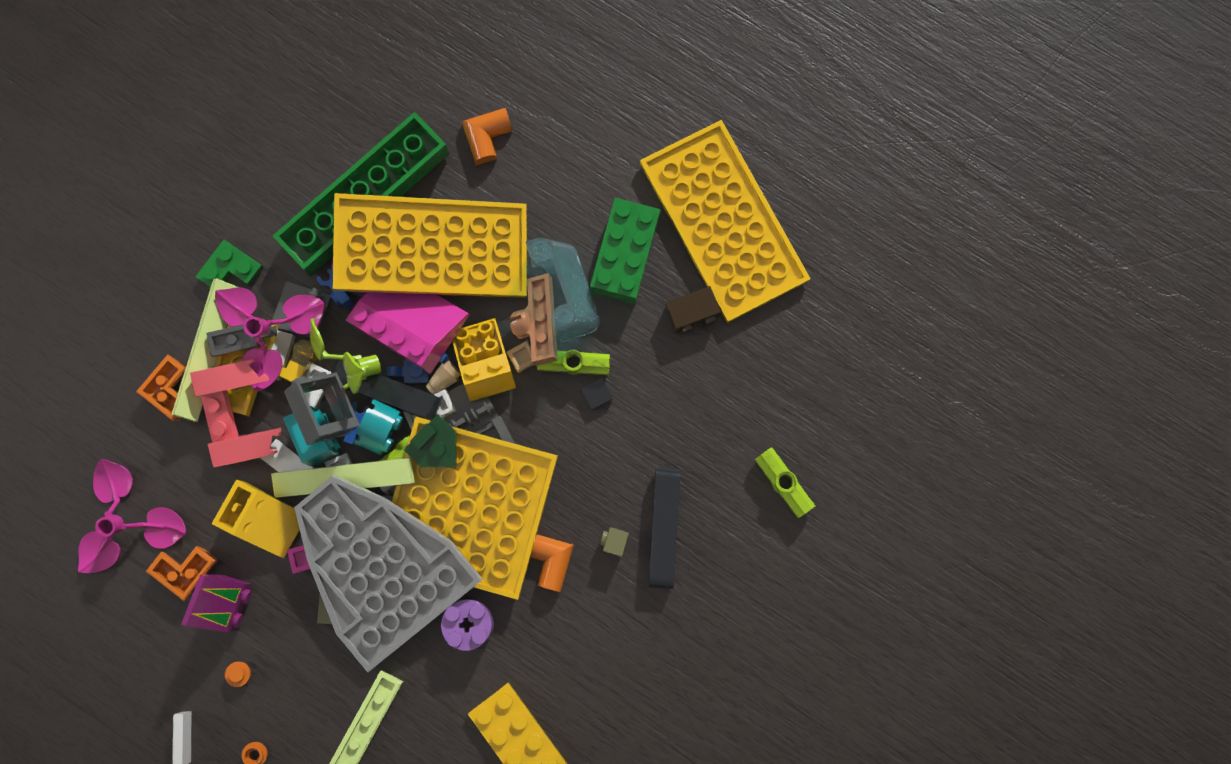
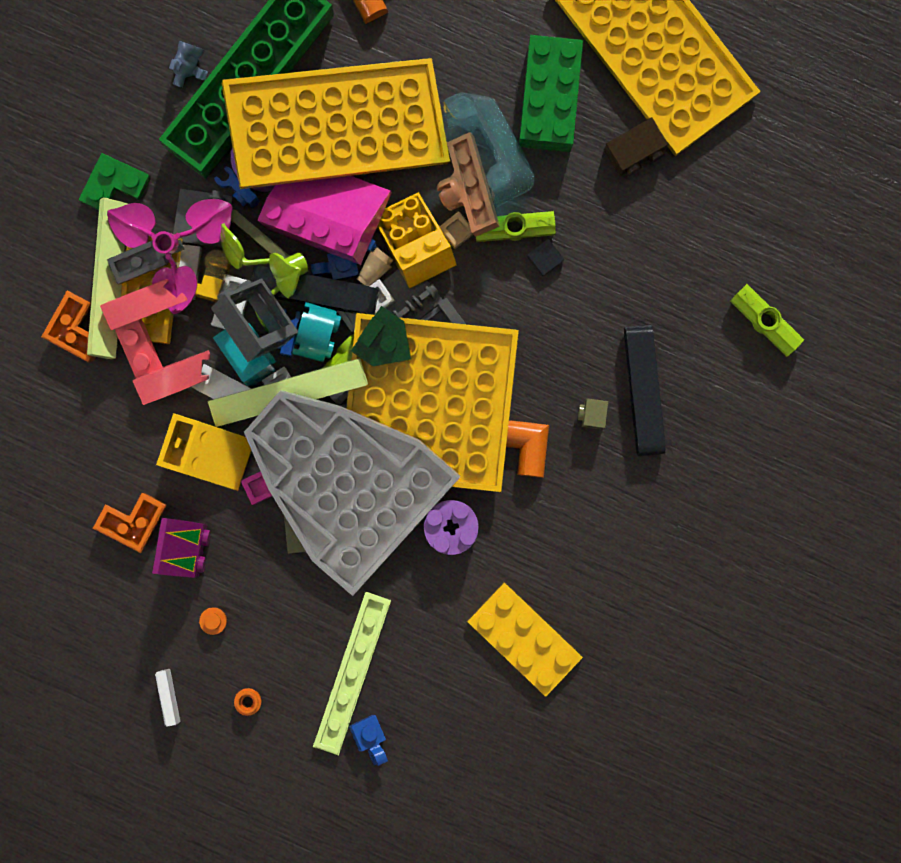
camera: 10 degrees left, 5 degrees up
(96, 548) = (34, 516): dark pink plant -> none
(312, 174) = (185, 63): none -> sand blue piece
(344, 333) = (255, 234): none -> olive tile

